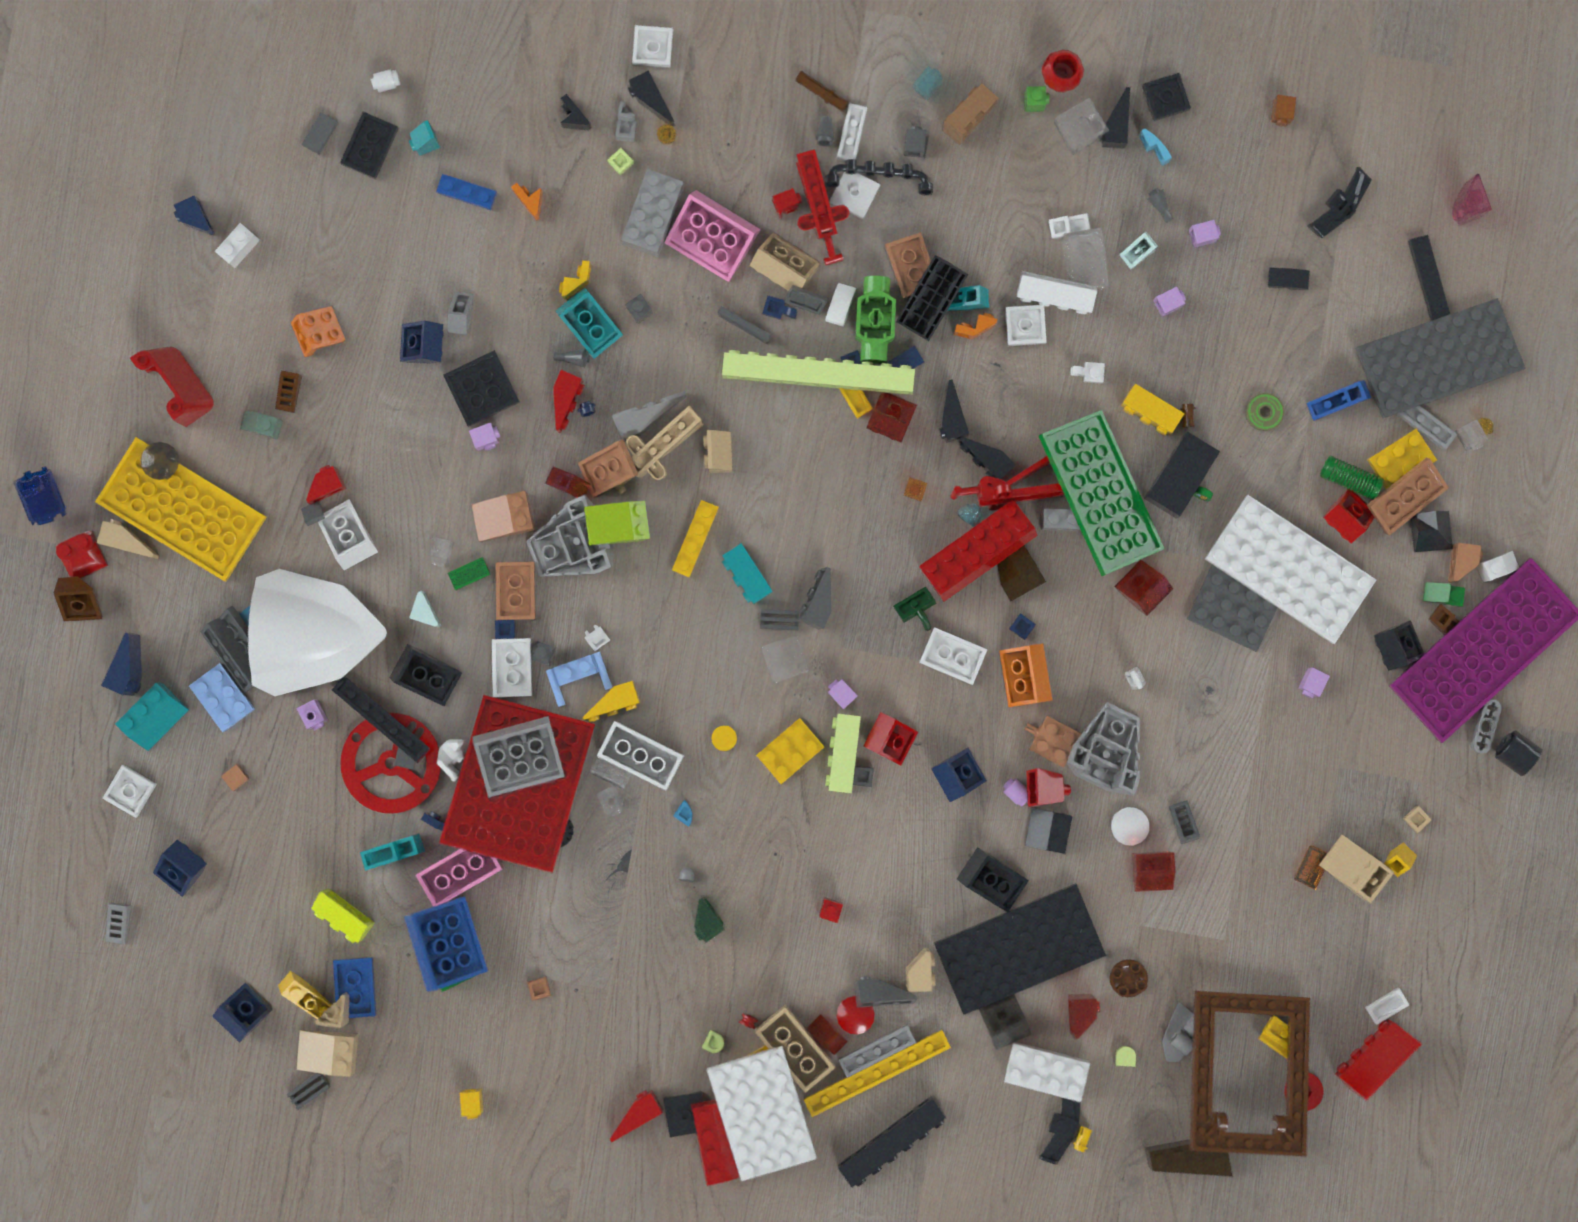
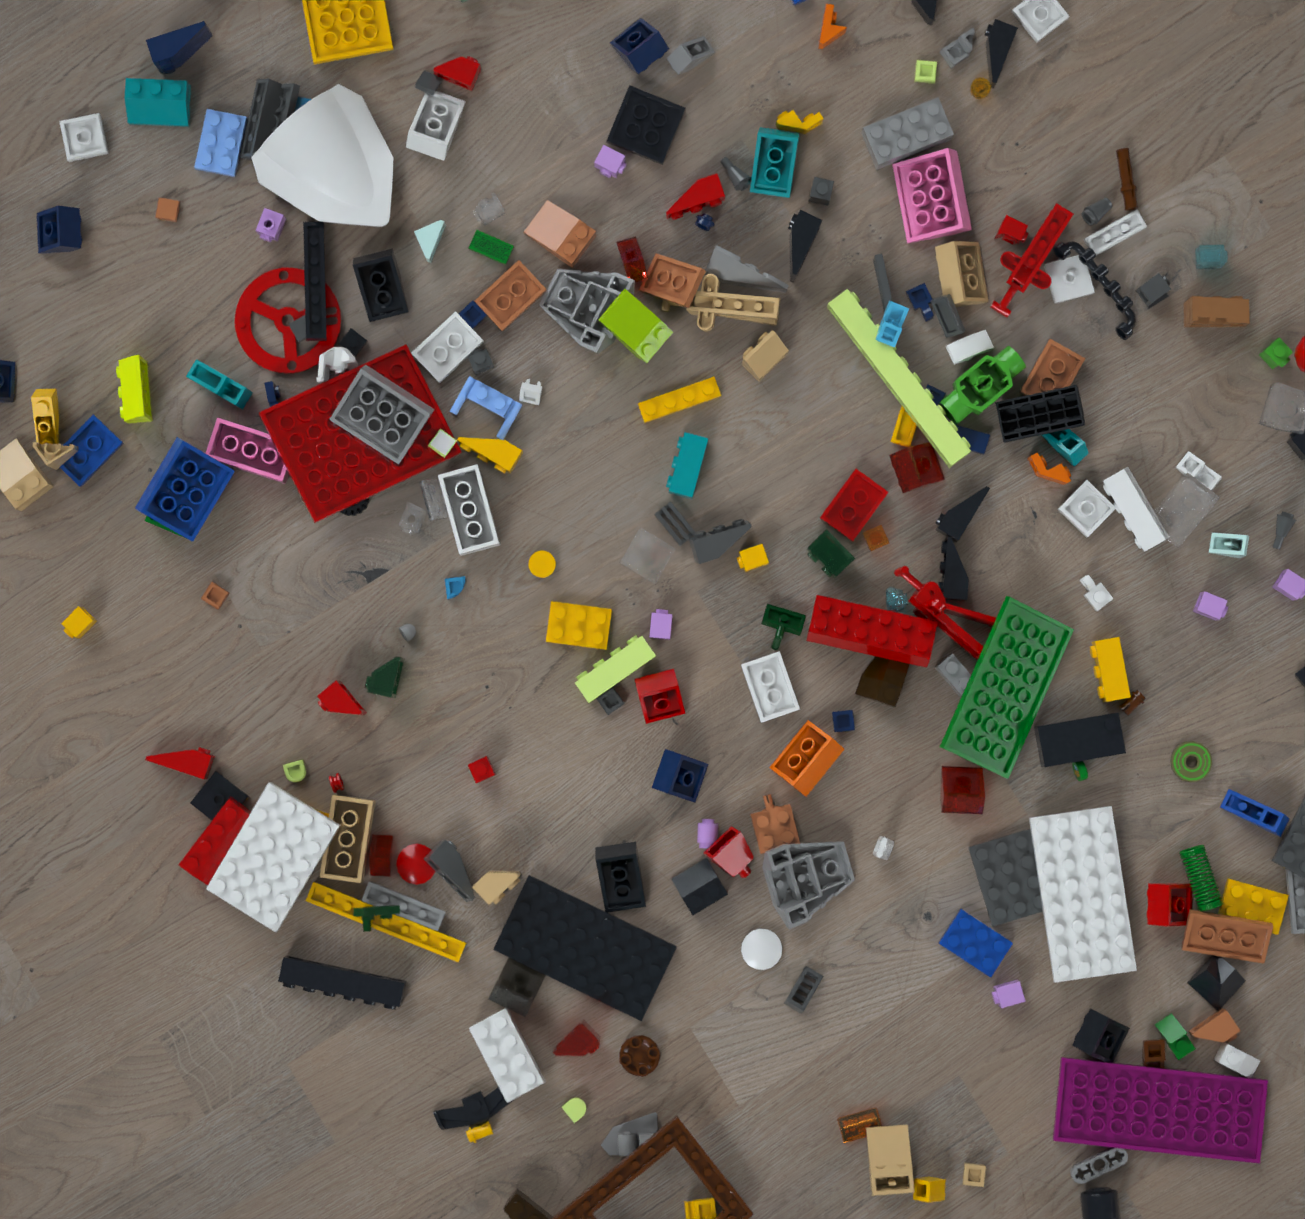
camera: 50 degrees right, 0 degrees up
(448, 730) = (353, 342): none -> black plate
(576, 732) = (442, 443): none -> white tile
(659, 352) = (802, 235): none -> black slope
(693, 966) = (338, 699): none -> red slope
(776, 343) = (891, 323): none -> medium azure slope
(852, 587) = (752, 558): none -> yellow brick
(861, 1080) = (368, 914): none -> dark green plate
(878, 483) = (854, 505): none -> red plate
(898, 531) = (829, 554): none -> clear green slope
(1153, 871) = (742, 999): clear red slope -> none
(1257, 673) = (975, 943): none -> blue plate

